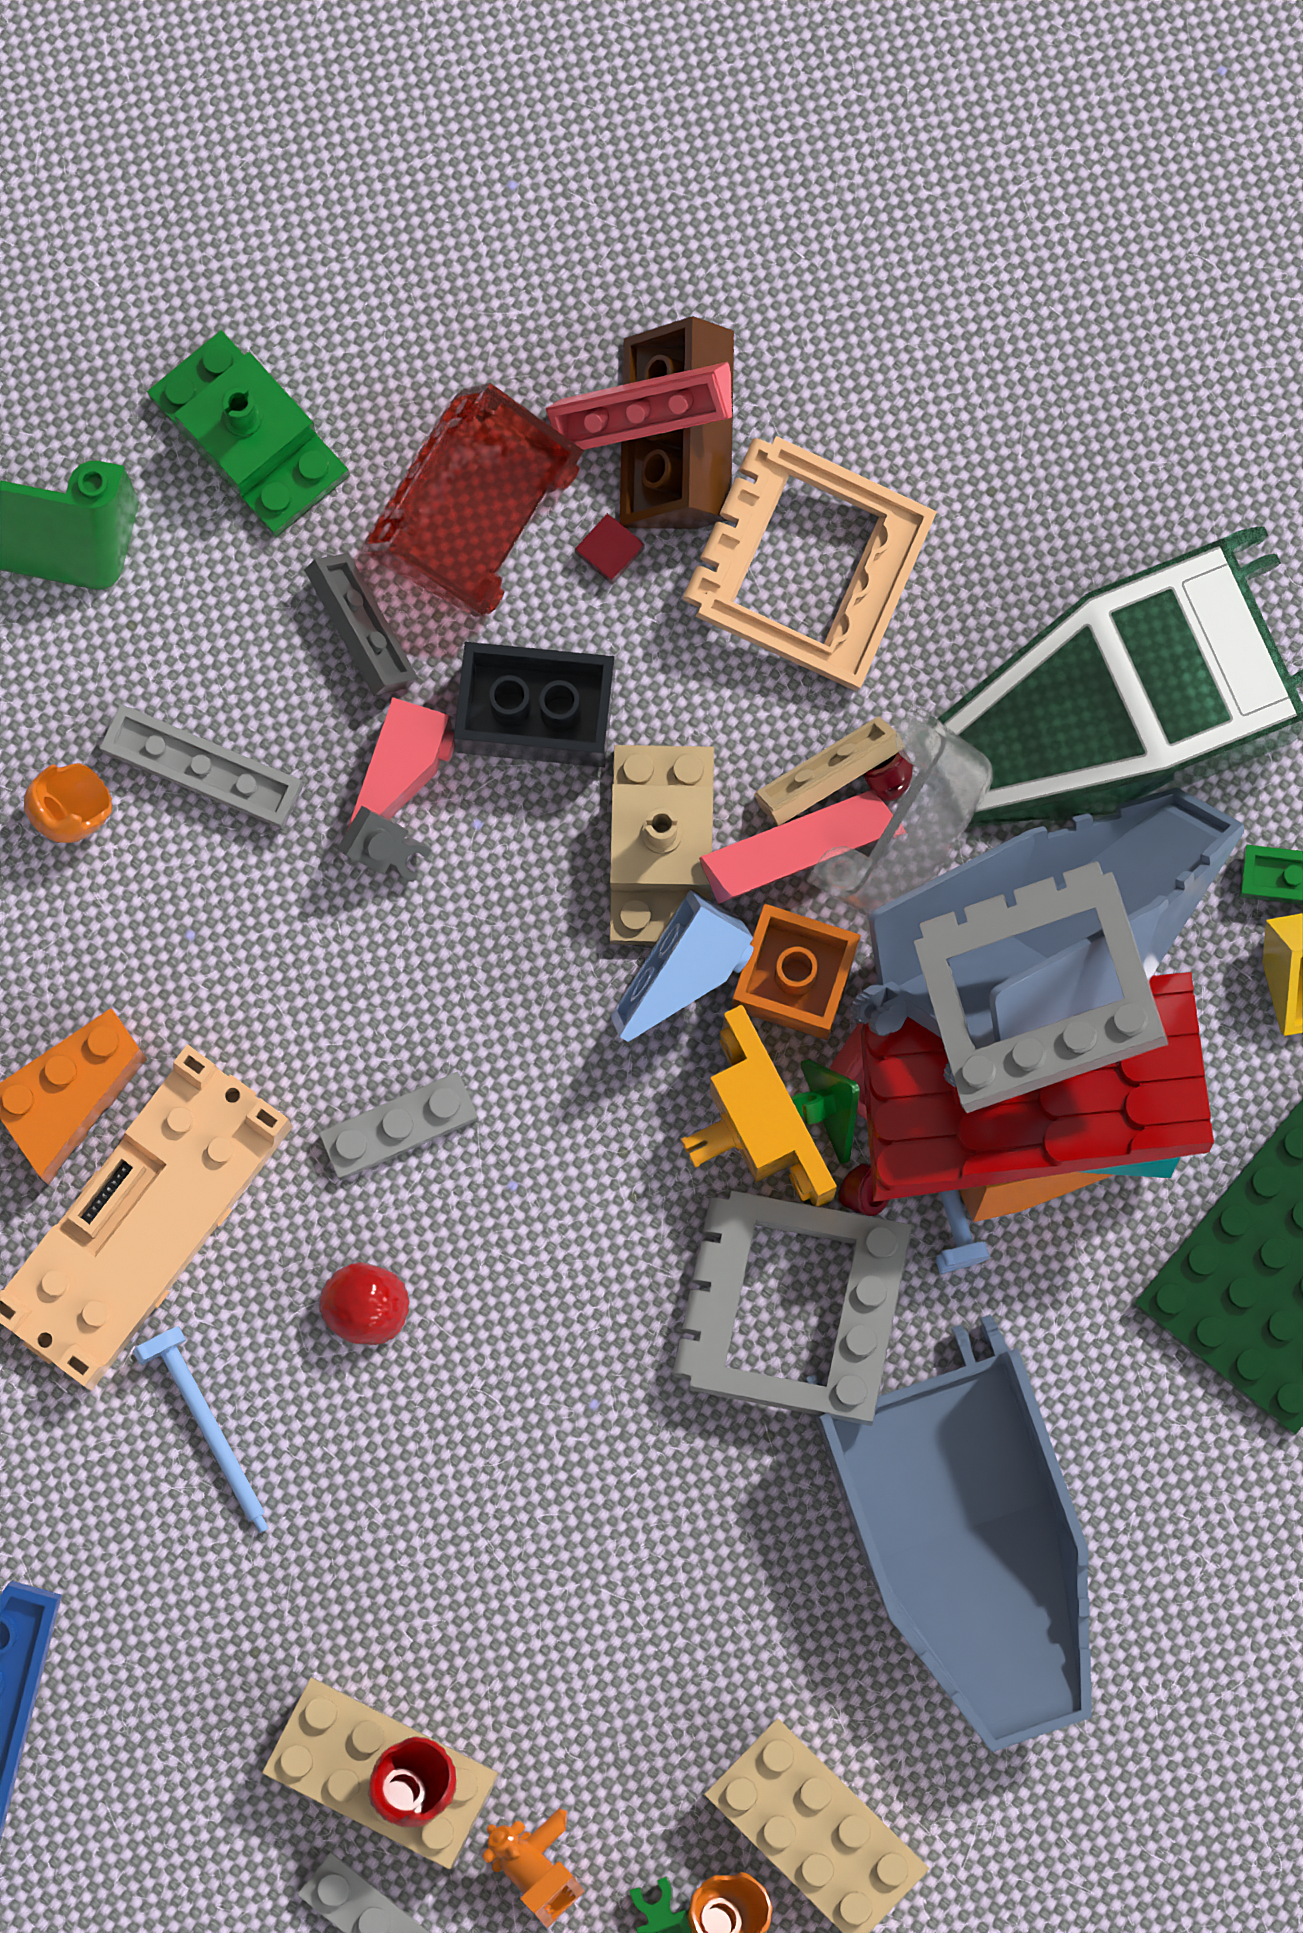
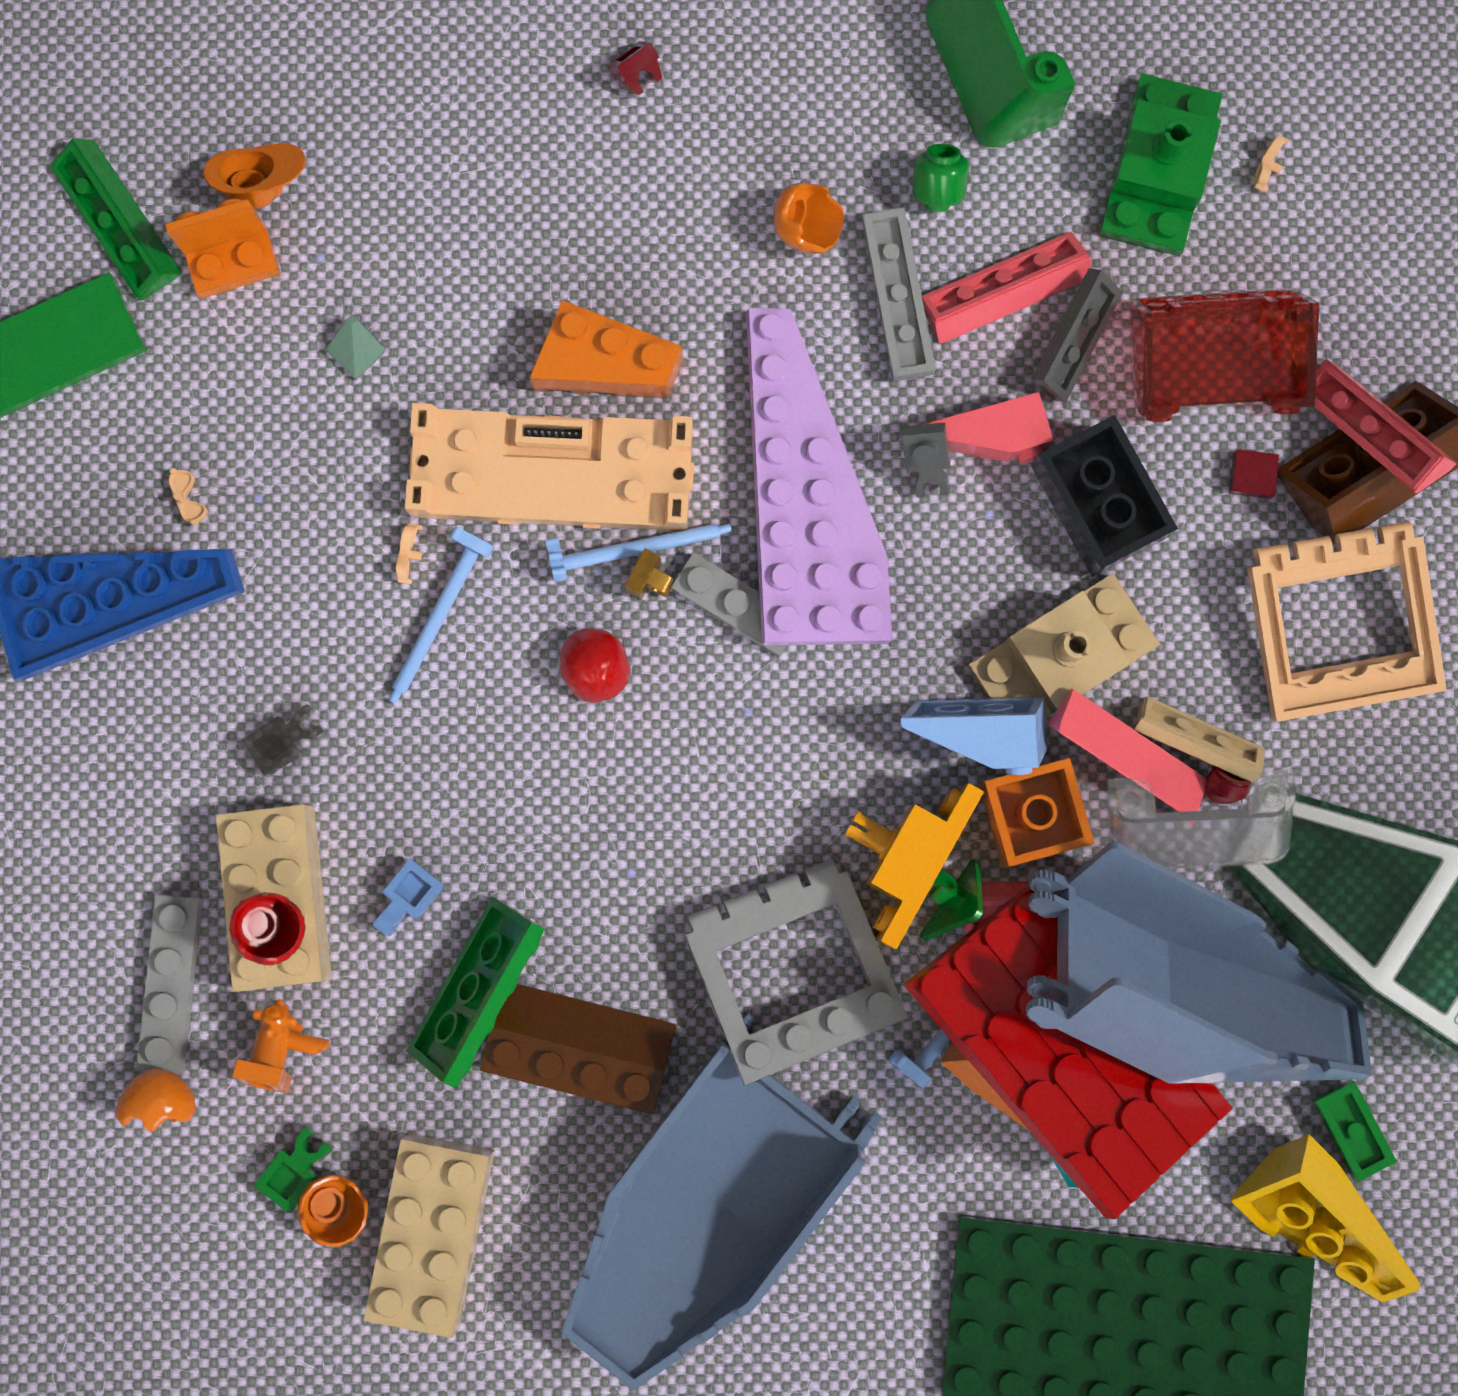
camera: 55 degrees right, 5 degrees up
(116, 649) = (940, 177): none -> green head
(125, 1420) = (406, 552): none -> light nougat piece
(229, 1671) = (278, 743): none -> clear smoke plate
(242, 1271) = (560, 563): none -> light blue piece
(265, 659) = (1006, 287): none -> coral slope
(314, 1192) = (647, 576): none -> pearl gold tile
(318, 334) = (1266, 163): none -> light nougat piece
(375, 999) = (815, 535): none -> lavender wing
(467, 1635) = (411, 893): none -> medium blue plate
(607, 1628) = (475, 992): none -> green plate
(730, 1564) = (580, 1048): none -> reddish brown slope
(857, 1192) = (907, 962): dark red tile -> none
(1057, 1048) = (1106, 1056): light grey hinge -> none

